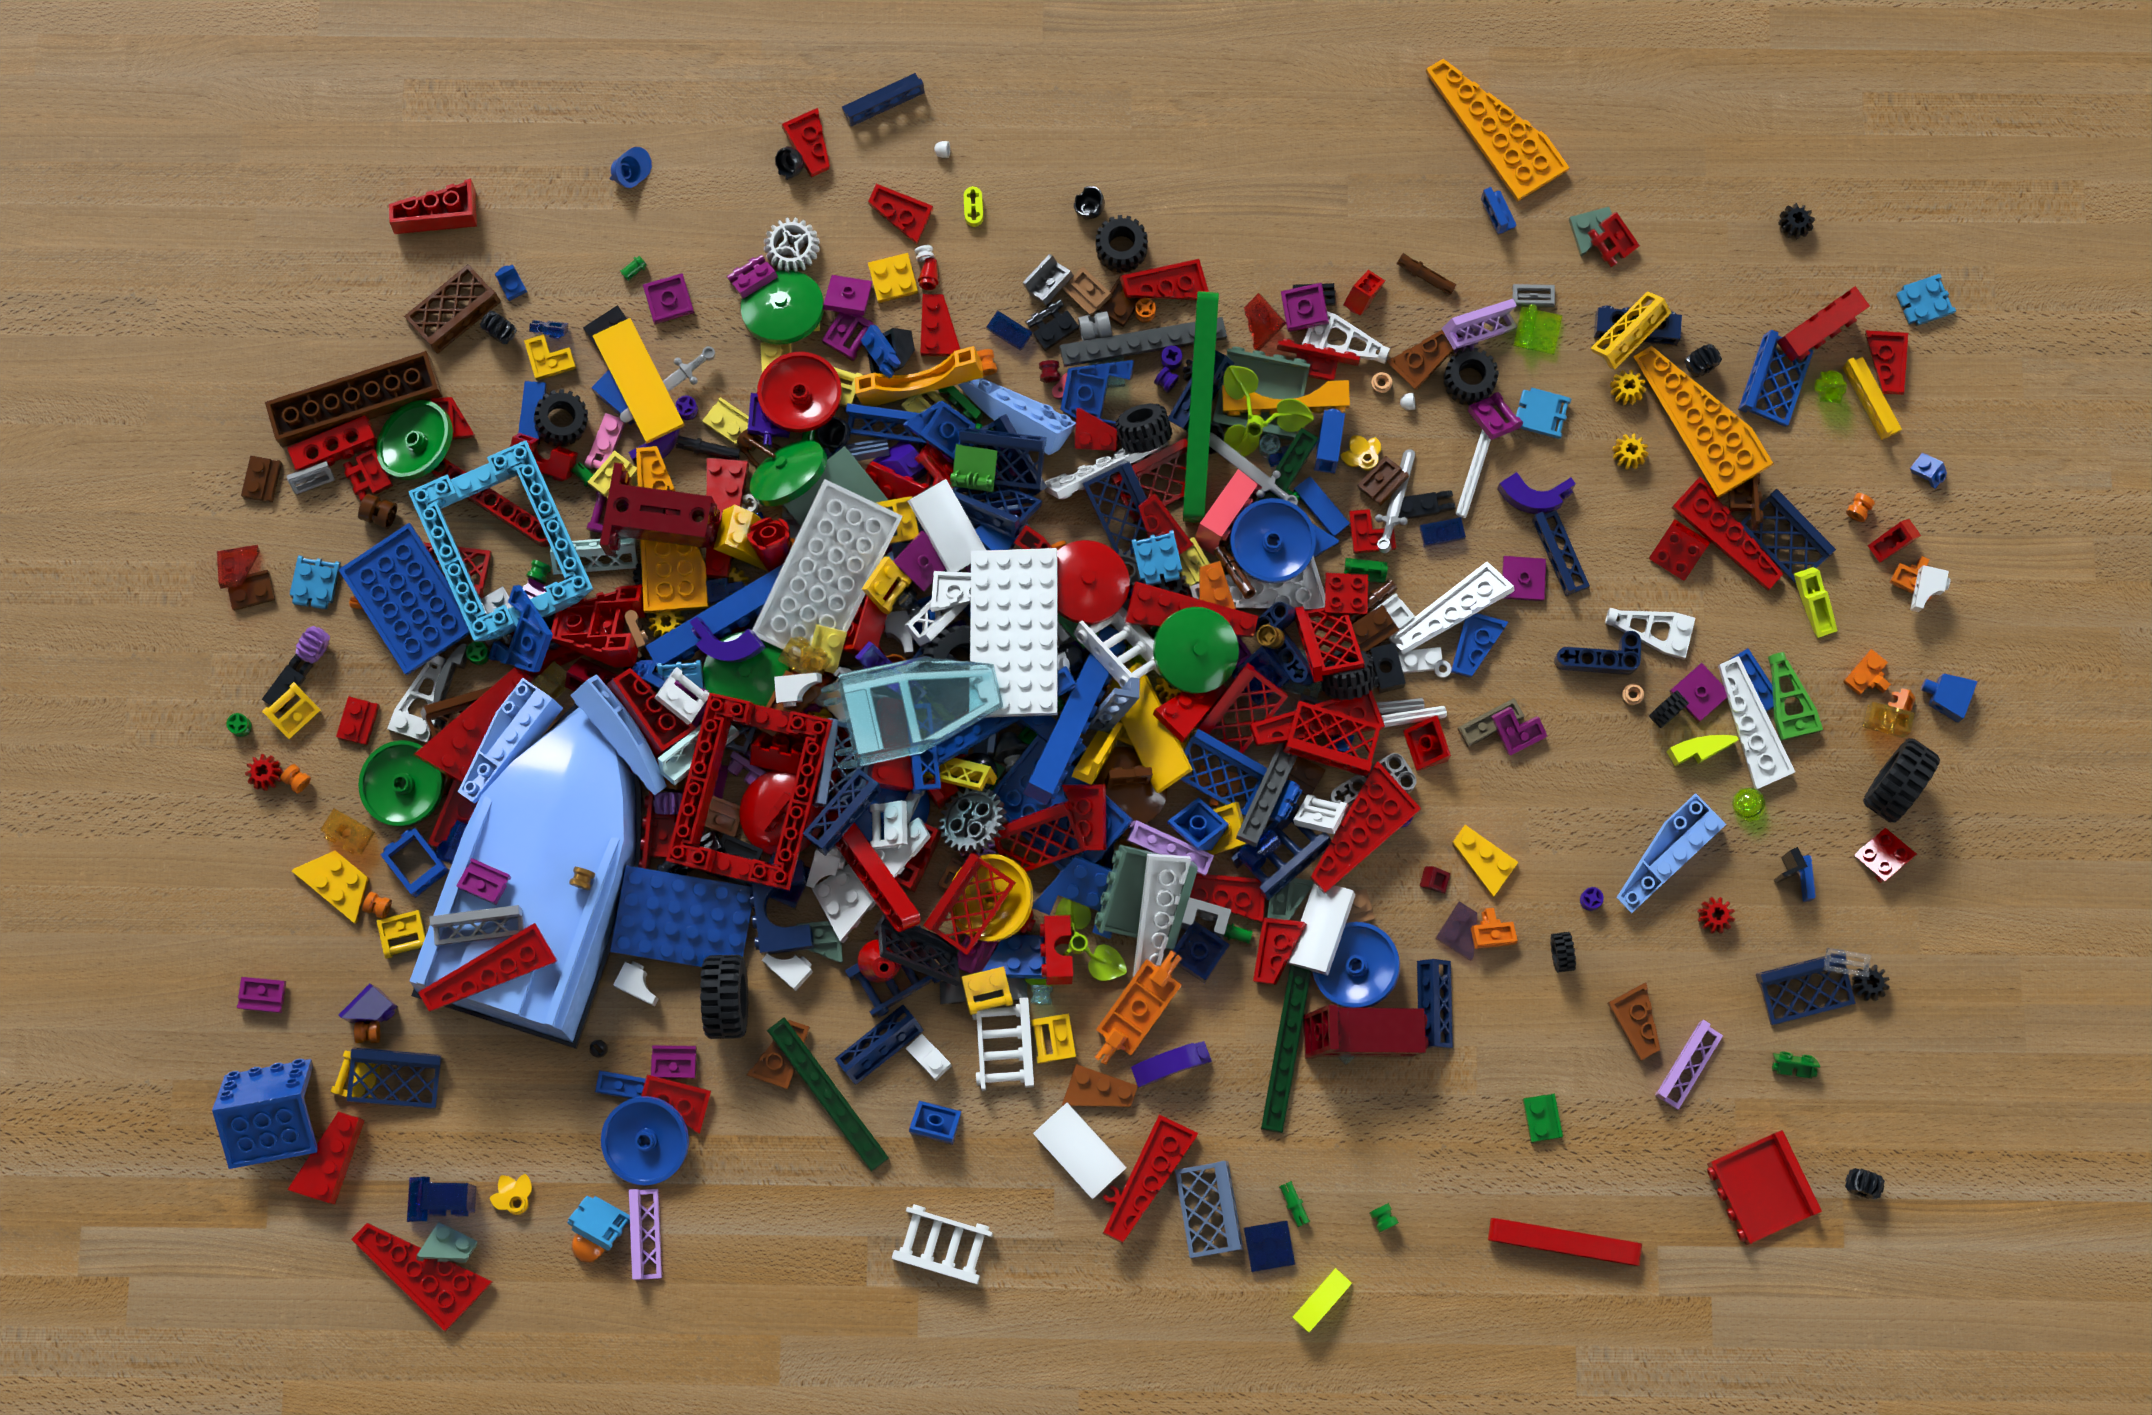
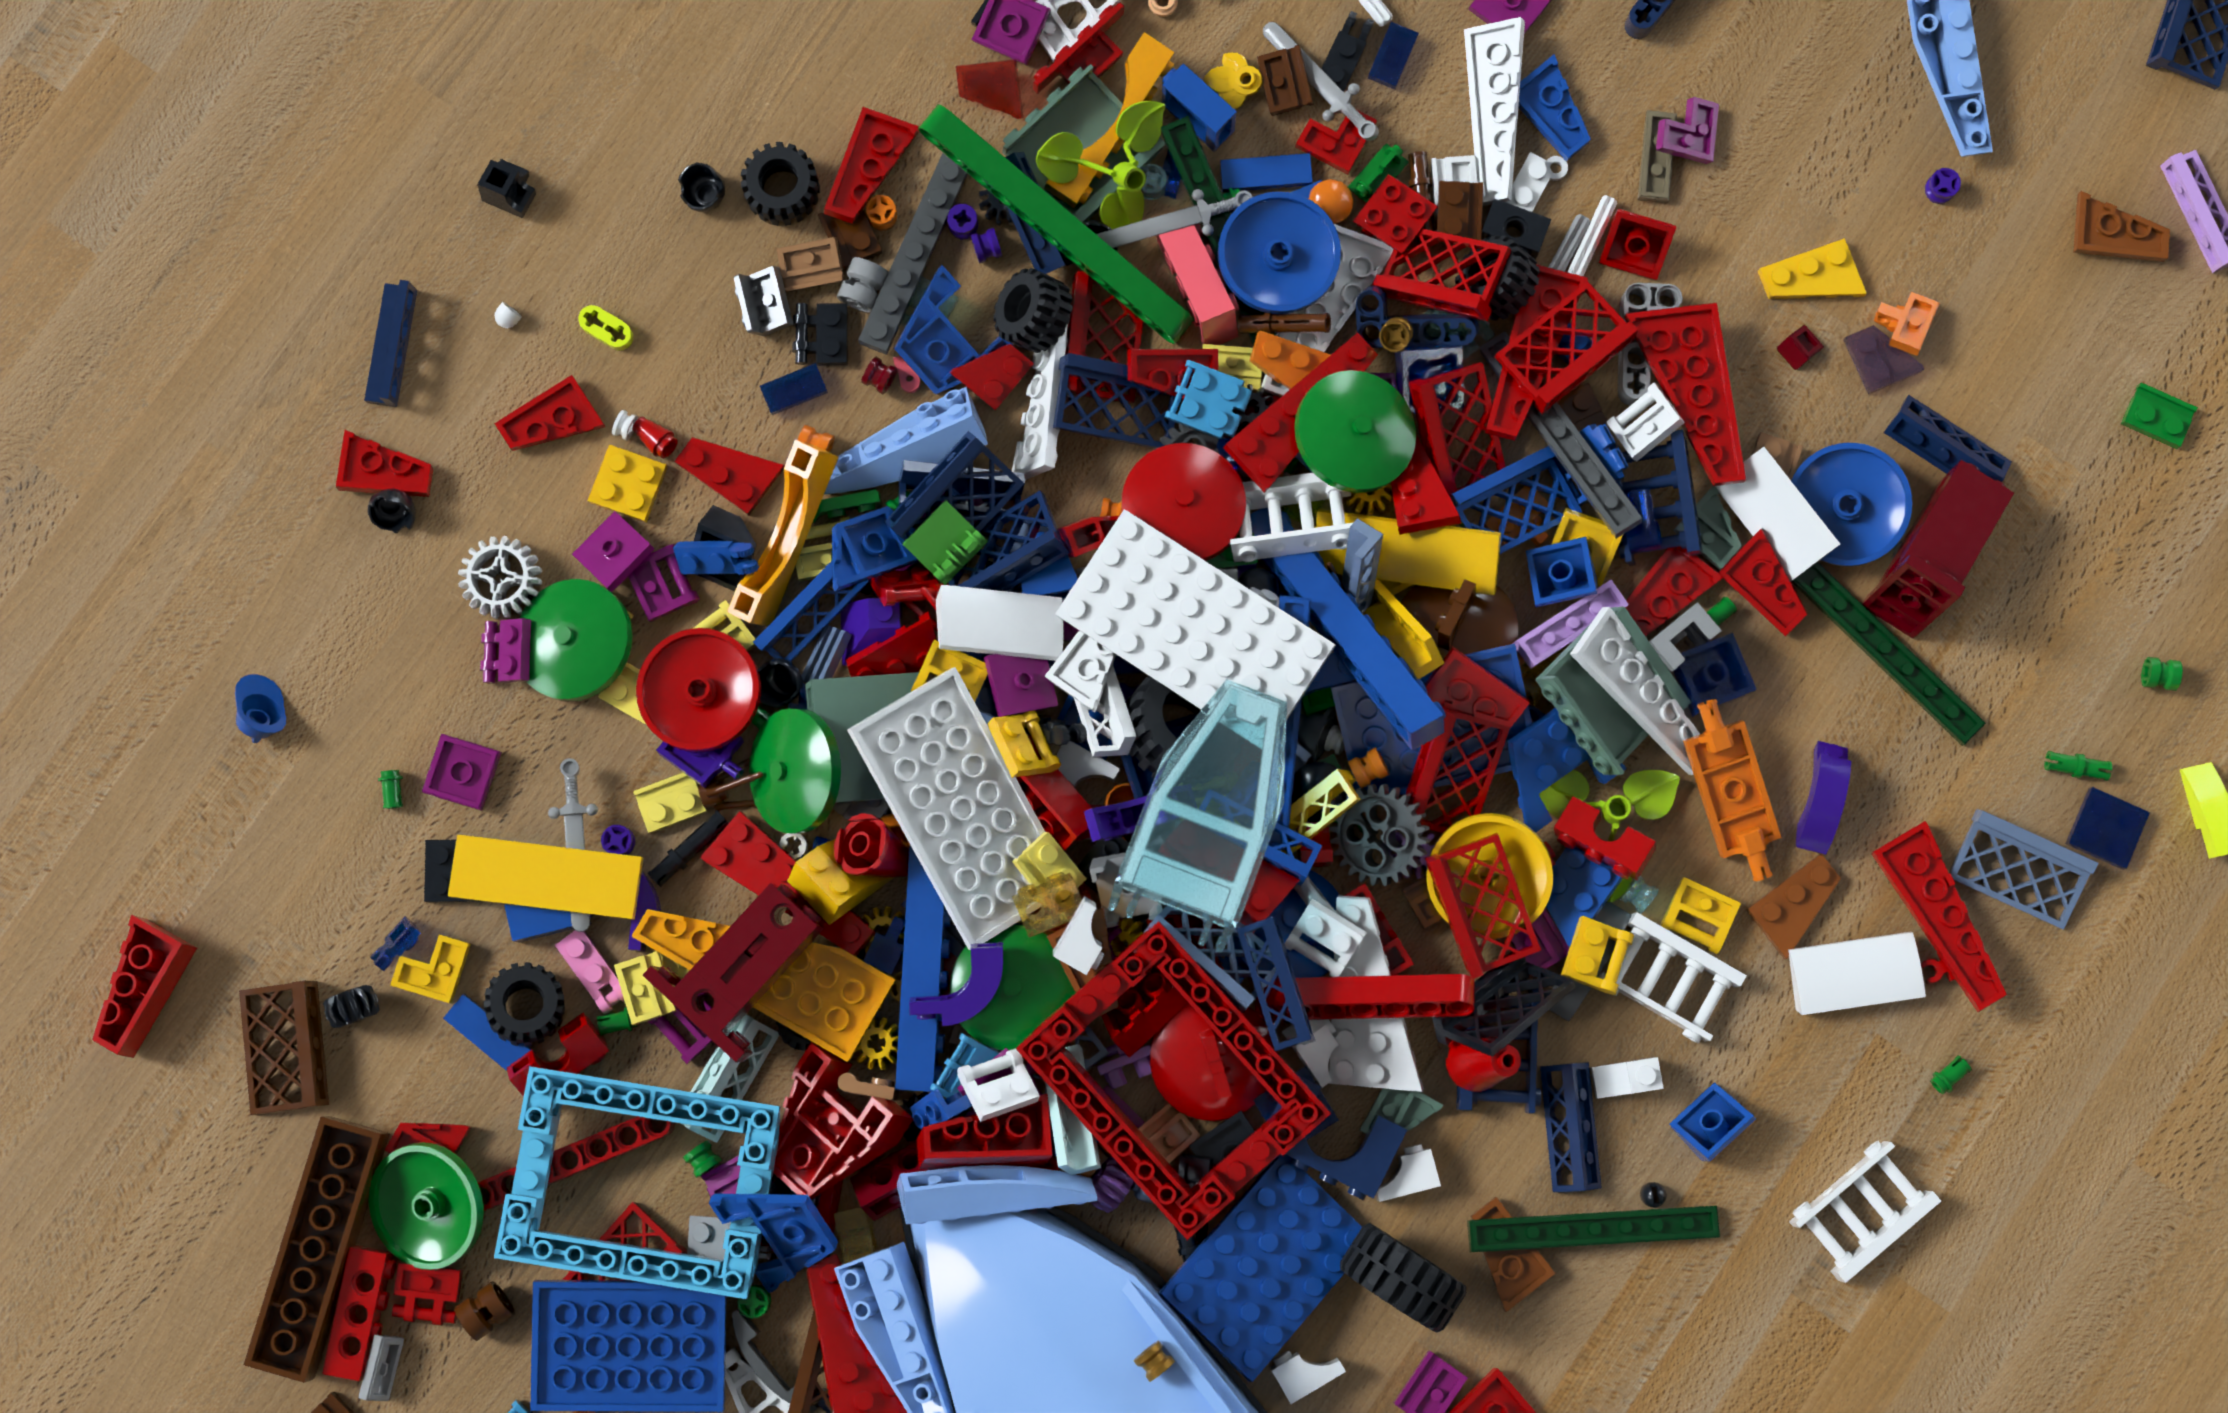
camera: 55 degrees left, 5 degrees up
(510, 282) = (301, 953): blue bracket -> none
(658, 833) = (1139, 1227): red bracket -> none
(874, 1121) = (1647, 1196): none -> black hinge
(1007, 788) = (1368, 767): none -> orange wheel
(1014, 99) = (506, 187): none -> black brick
(1056, 1245) = (1950, 1075): none -> green pin
(1328, 553) = (1333, 198): none -> orange hair
(1563, 952) = (1988, 259): black tyre -> none
(1724, 919) = (2064, 56): red gear -> none

